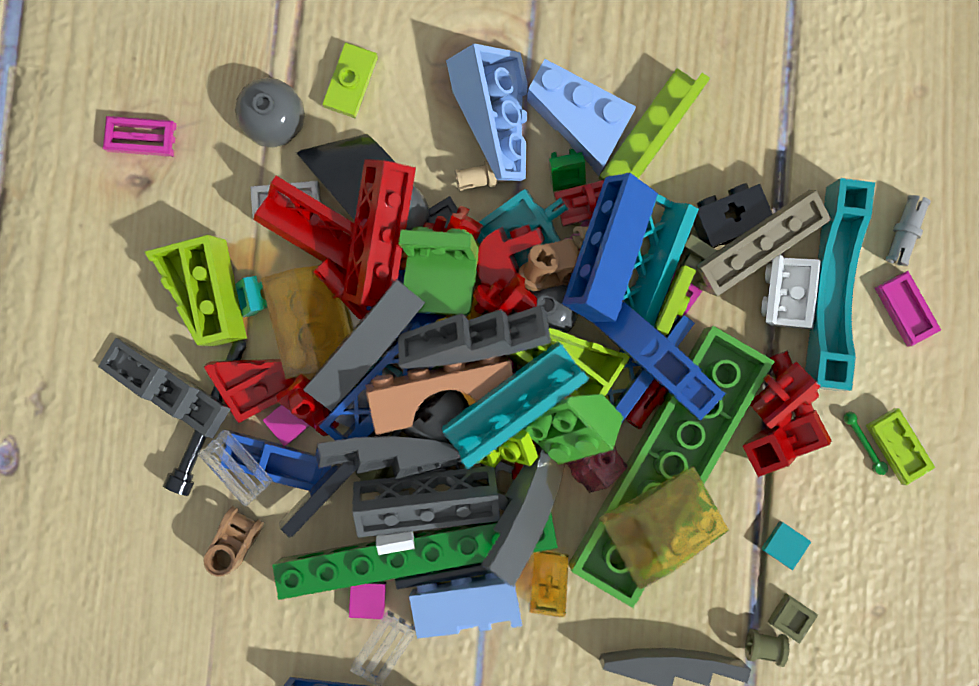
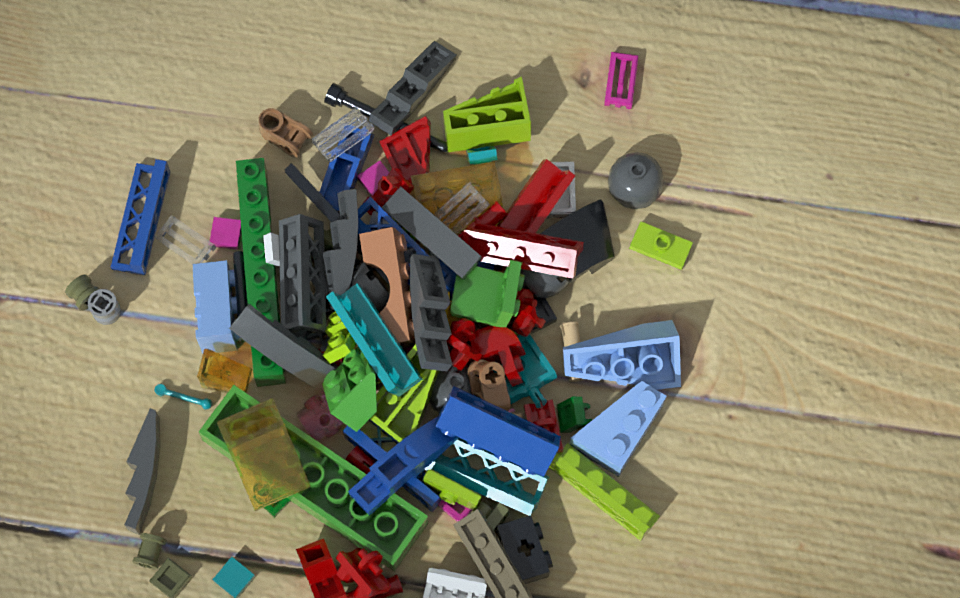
camera: 90 degrees right, 15 degrees down
(322, 319) = (476, 195): none -> clear tile
(568, 654) = (161, 390): none -> teal hinge

